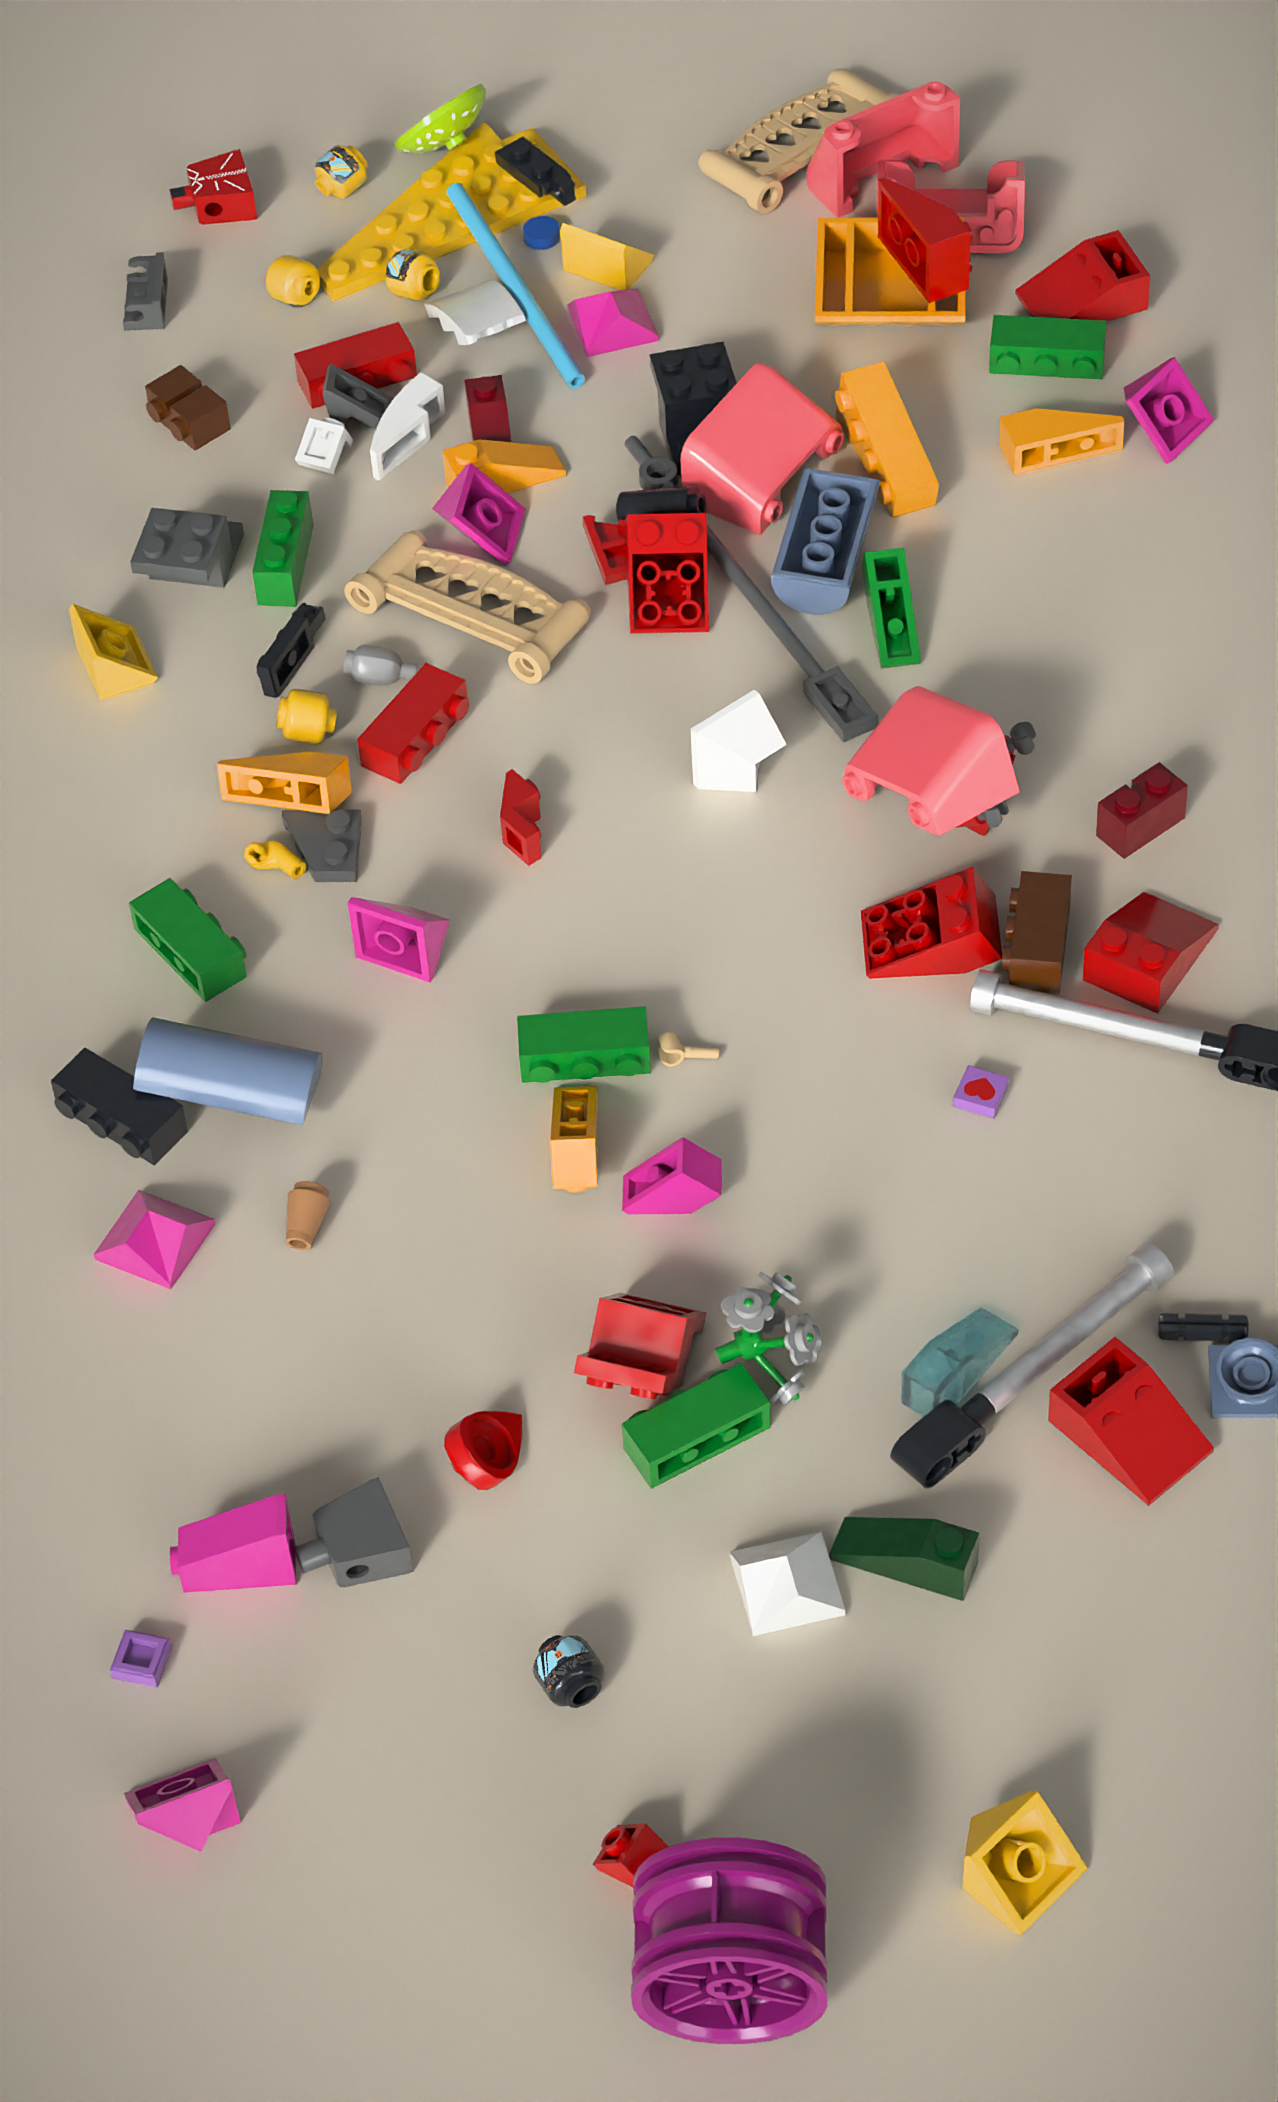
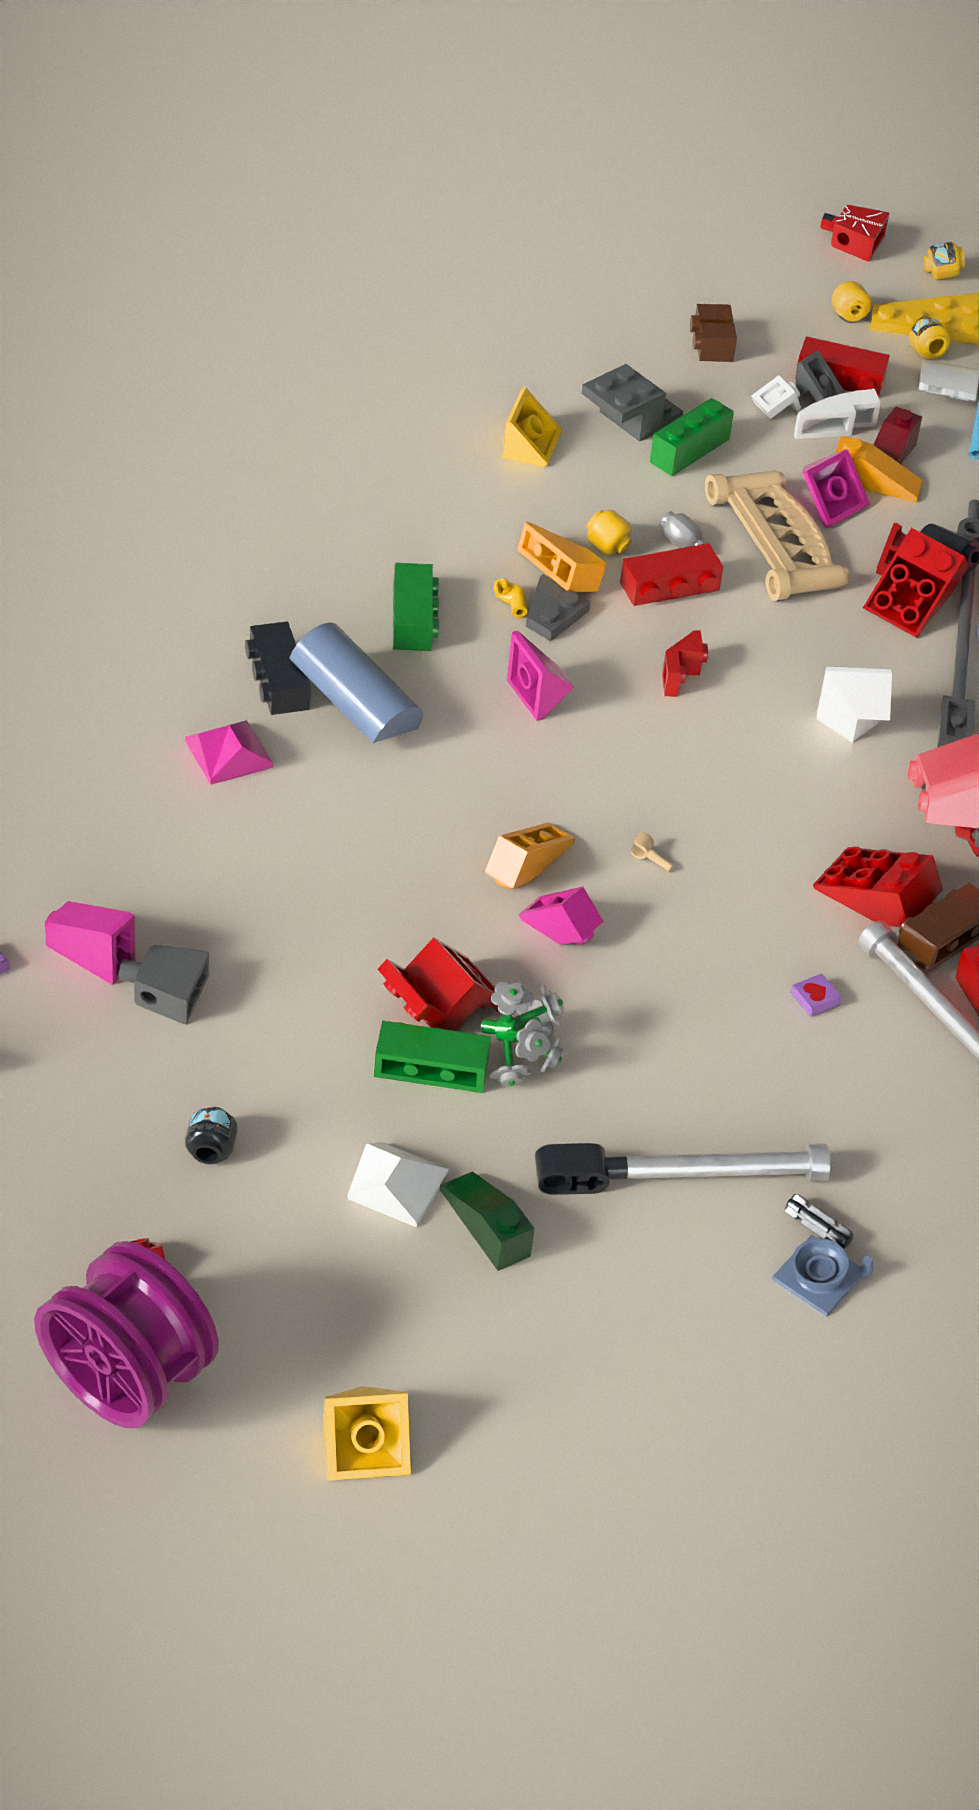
camera: 30 degrees right, 5 degrees down
(146, 294) = (757, 263): dark grey hinge -> none
(289, 649) = (639, 492): black hinge -> none
(305, 1213) = (325, 792): medium nougat cone -> none
(485, 1447) = (294, 982): red piece -> none
(583, 1044) = (588, 807): green brick -> none
(954, 1361) = (634, 1129): clear light blue slope -> none
(1128, 1421) = (705, 1237): red slope -> none

